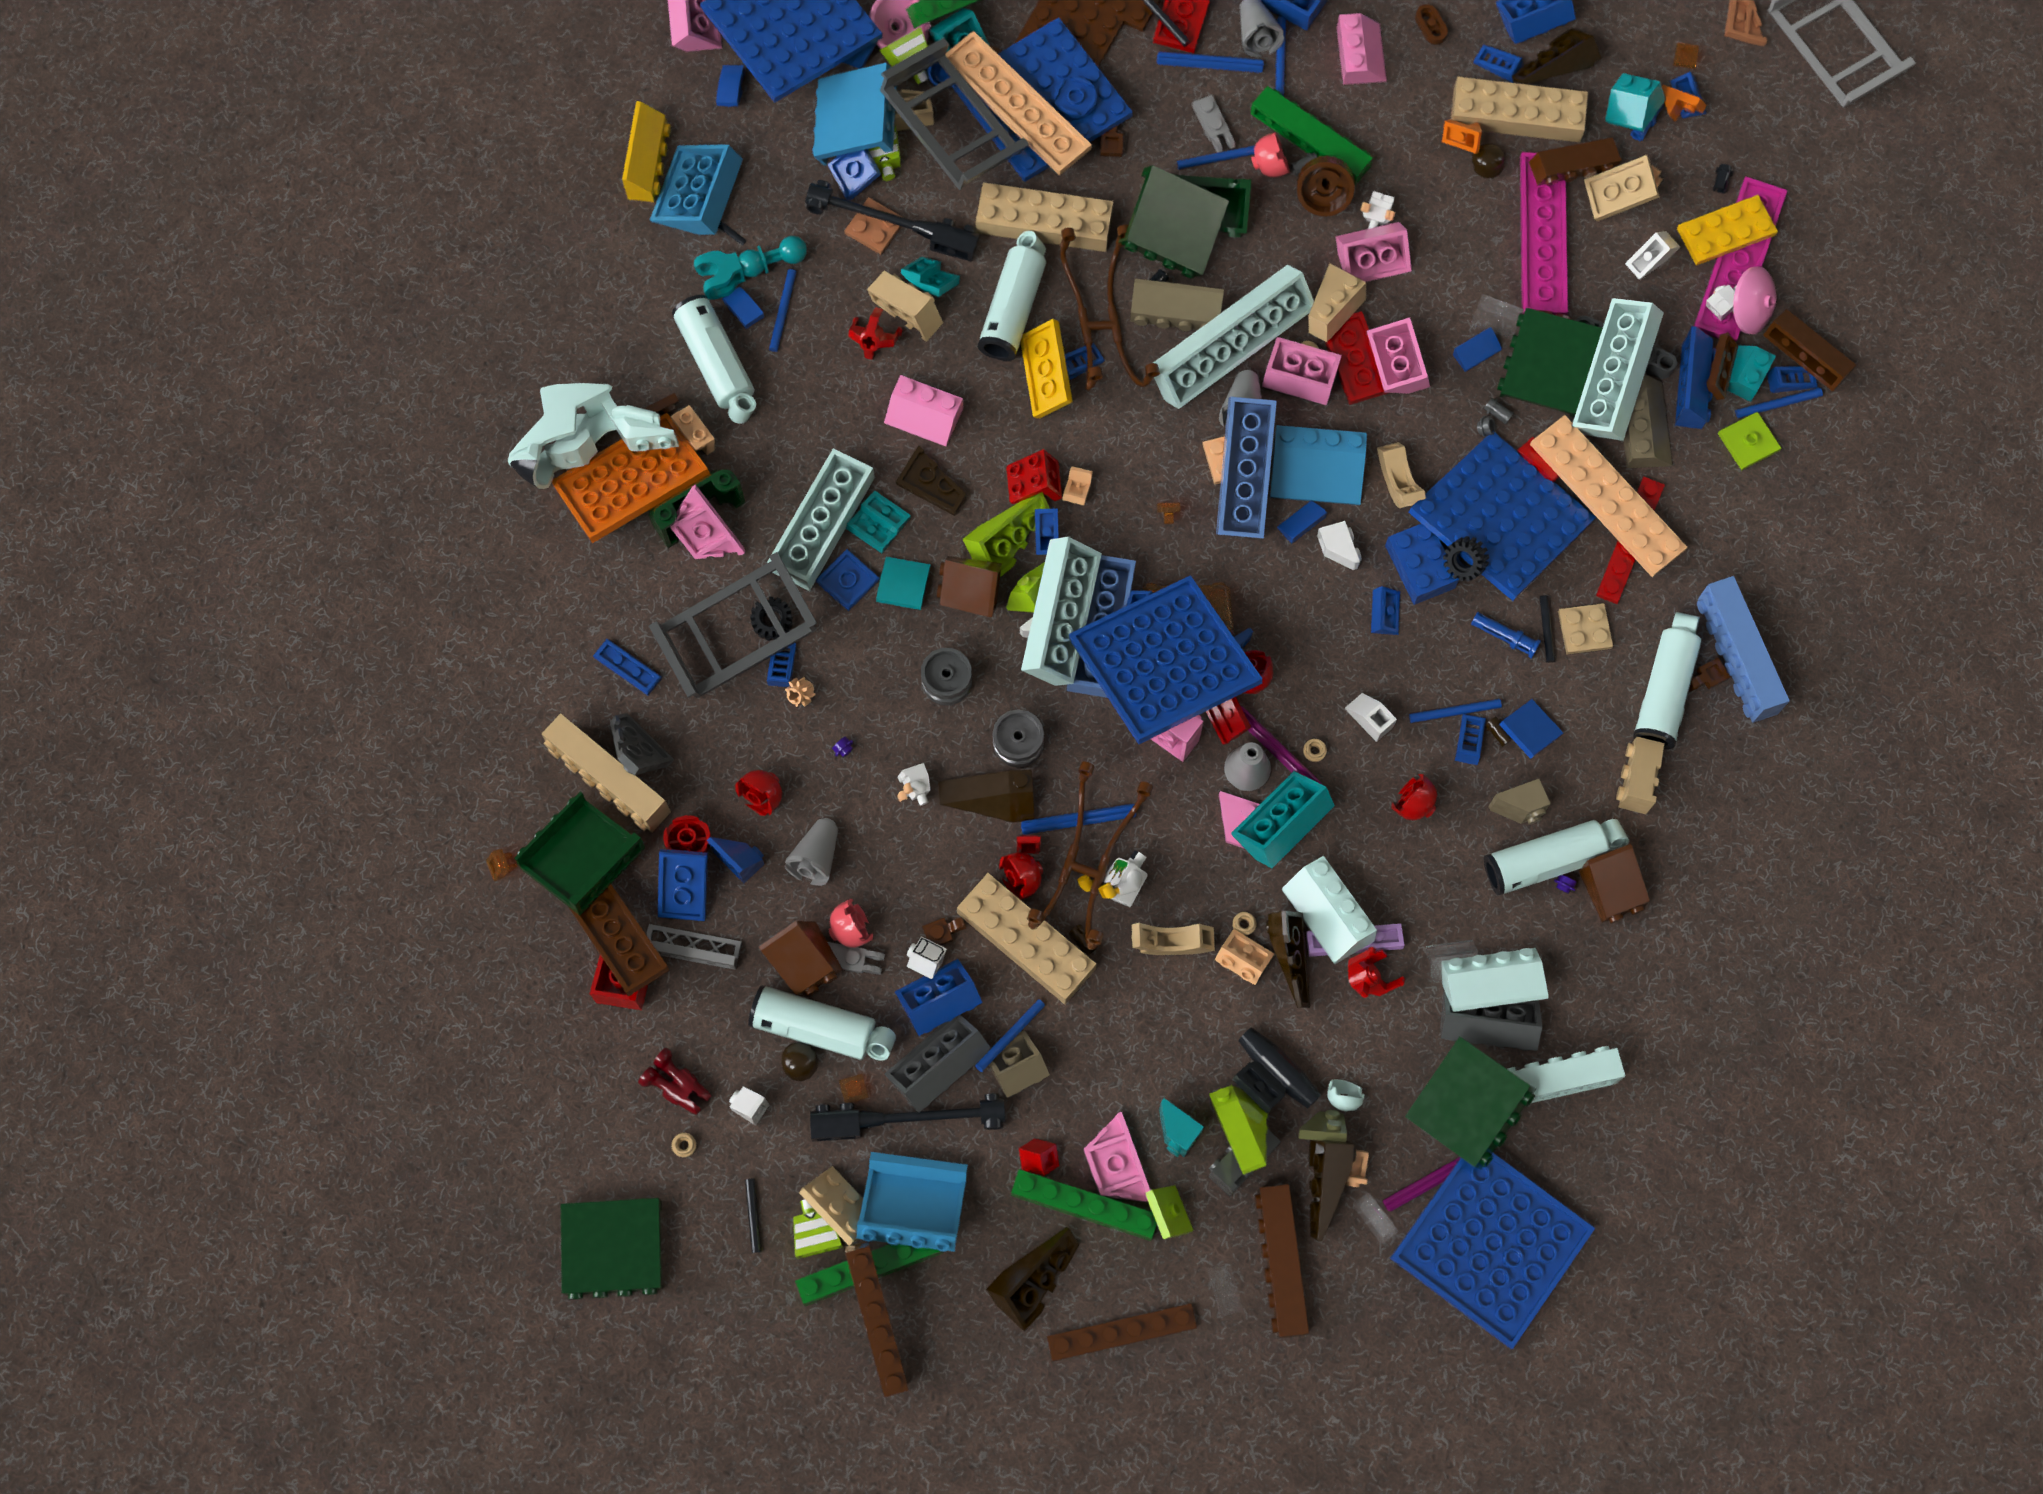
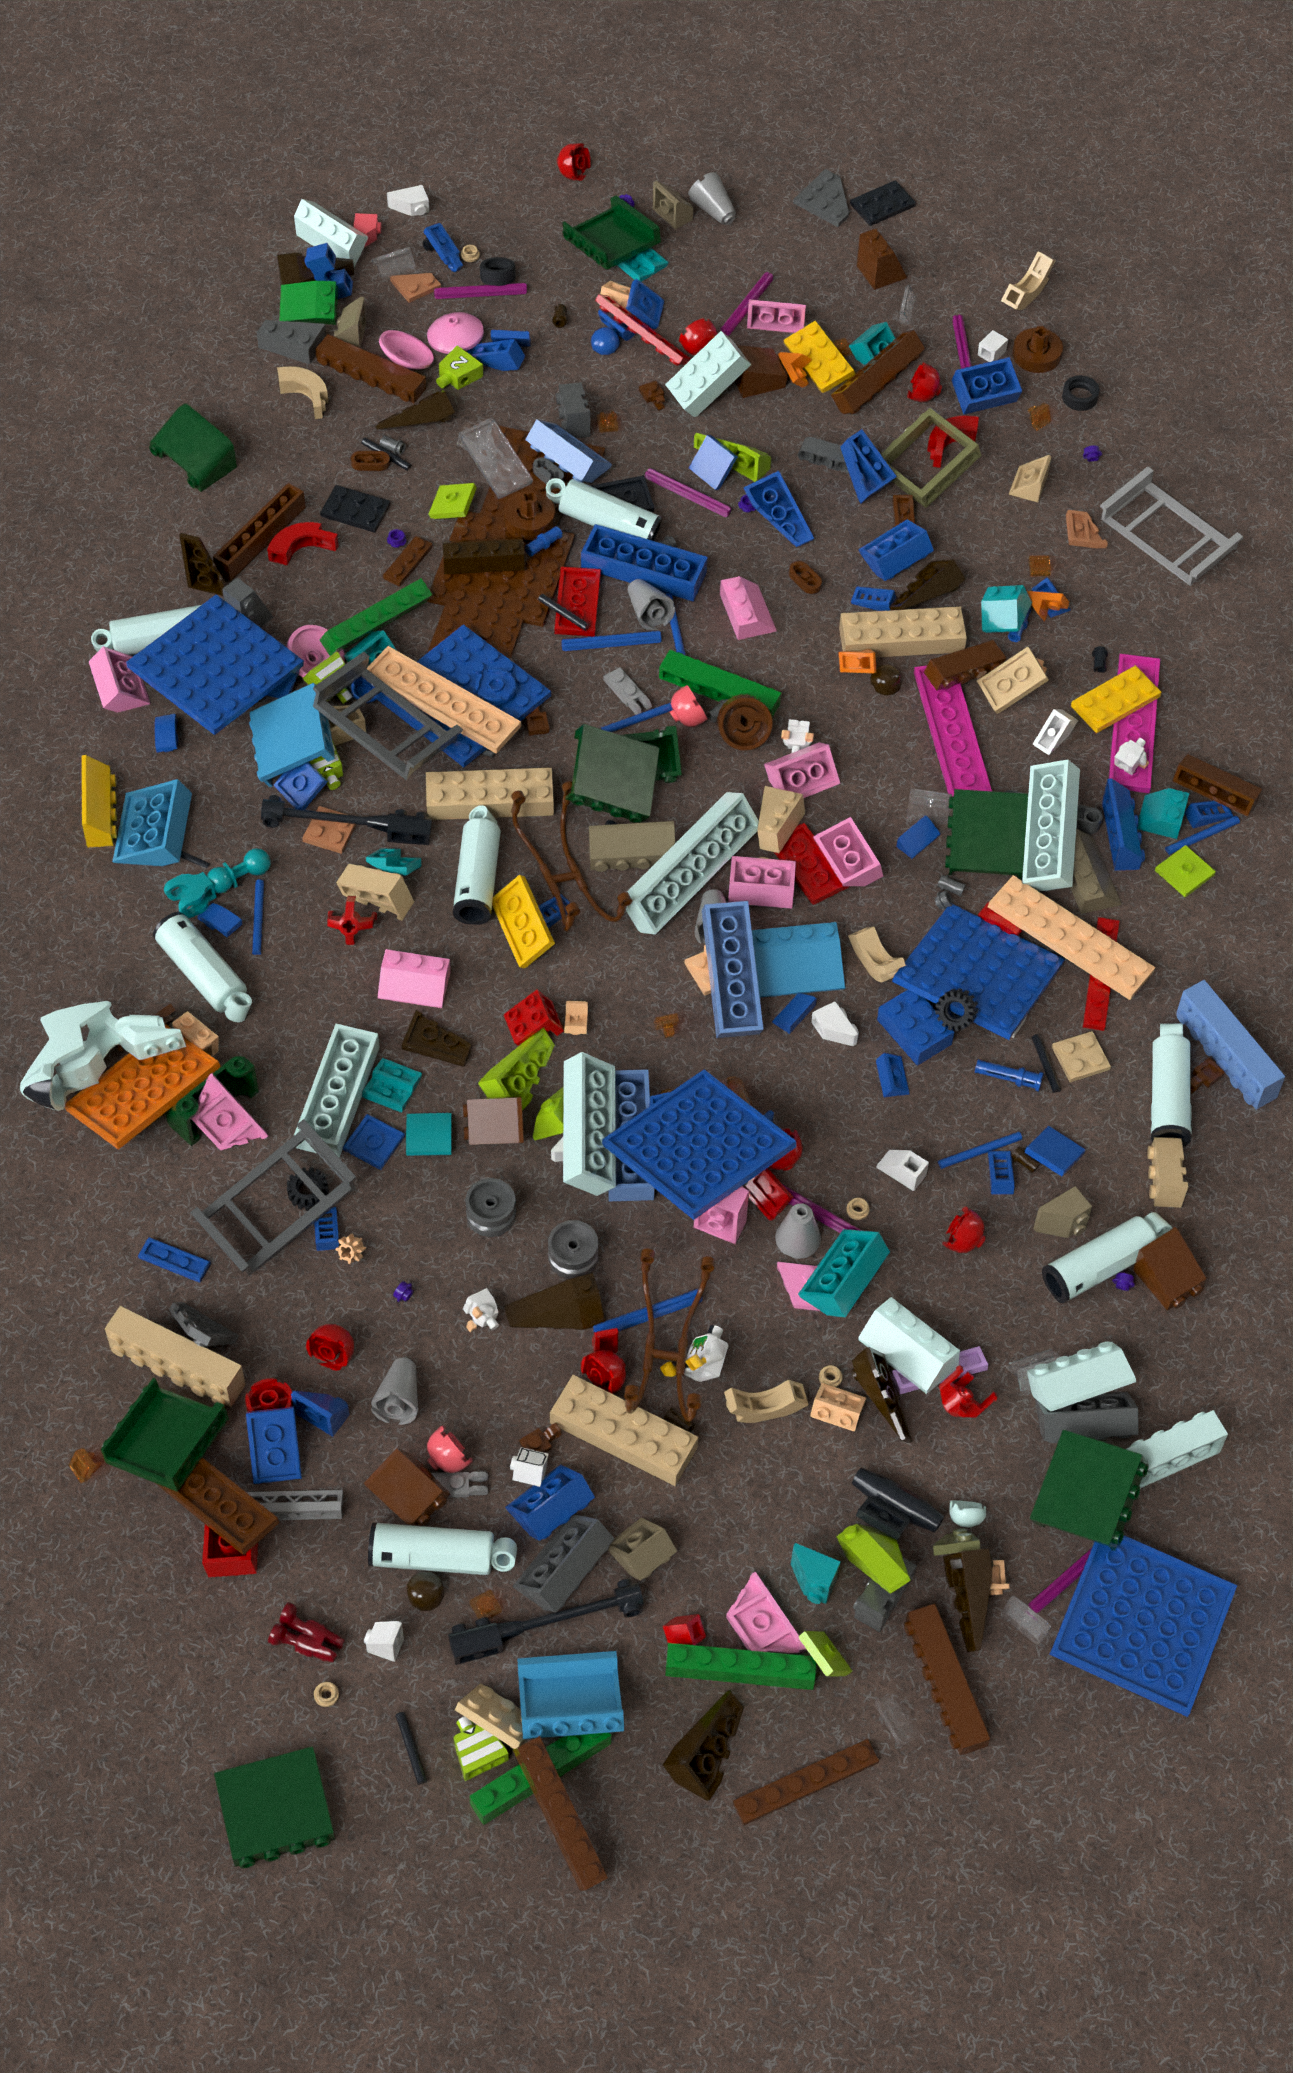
camera: 15 degrees left, 15 degrees down
(1010, 1035) = (628, 1523): blue bar -> none
(1045, 529) = (554, 1055): blue slope -> none
(1722, 366) = (1143, 810): reddish brown plate -> none
(1754, 300) = (1157, 750): bright pink dish -> none

